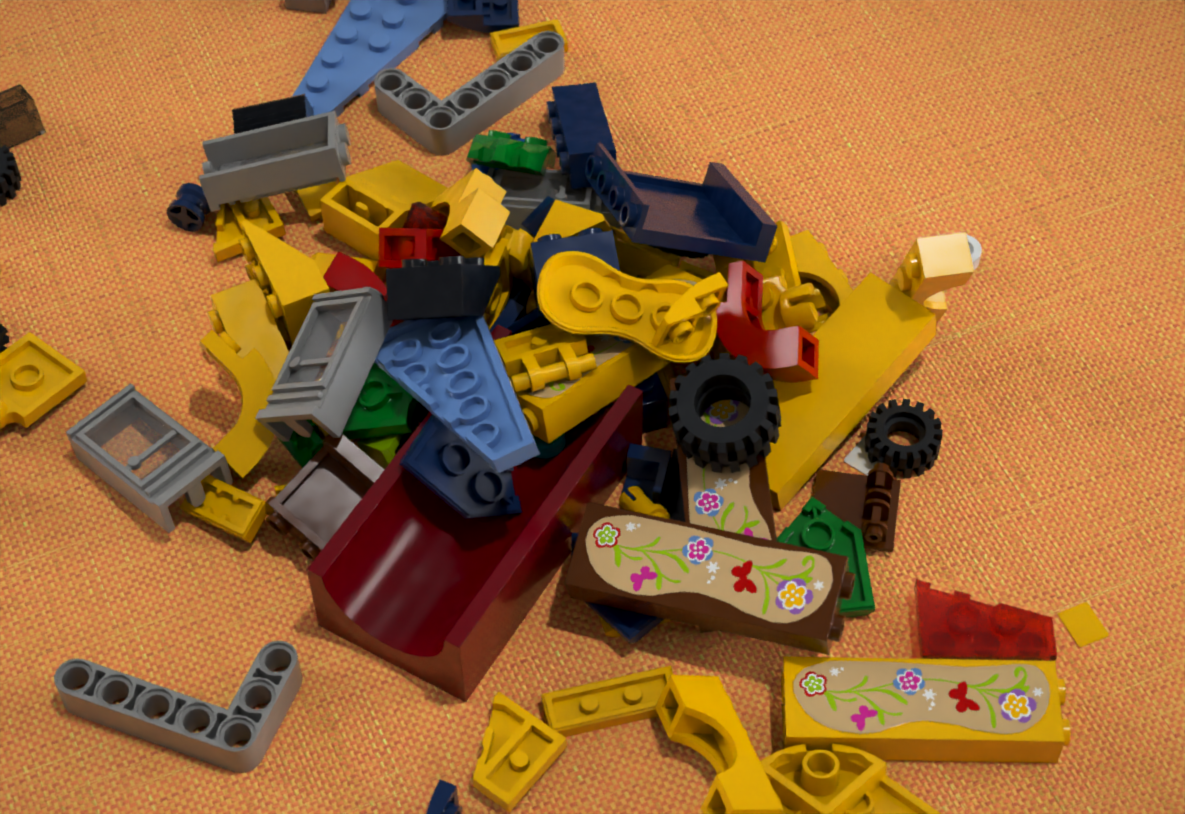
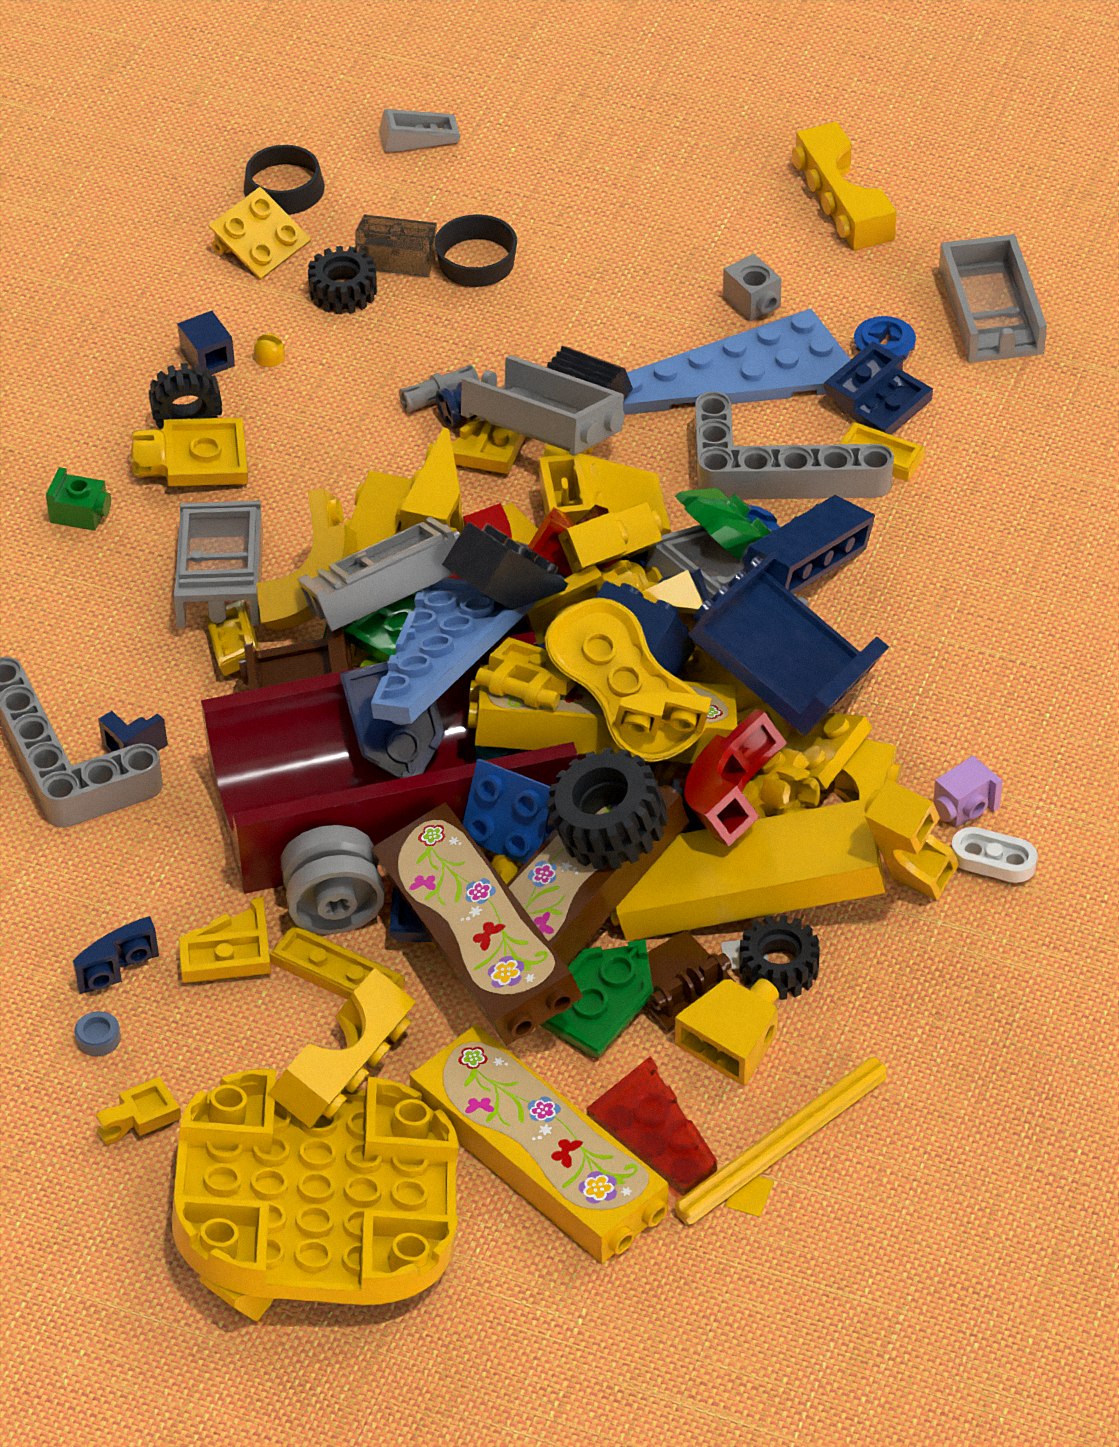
camera: 45 degrees right, 5 degrees down
(60, 65) = (476, 227): none -> black tyre
(156, 207) = (424, 393): none -> light grey pin
(234, 648) = (118, 735): none -> dark blue panel
(547, 633) = (331, 879): none -> light grey wheel
(637, 473) = (506, 812): none -> blue hinge
(879, 229) = (966, 792): none -> lavender brick
(940, 514) = (730, 1027): none -> yellow torso
(1062, 570) = (780, 1140): none -> yellow axle

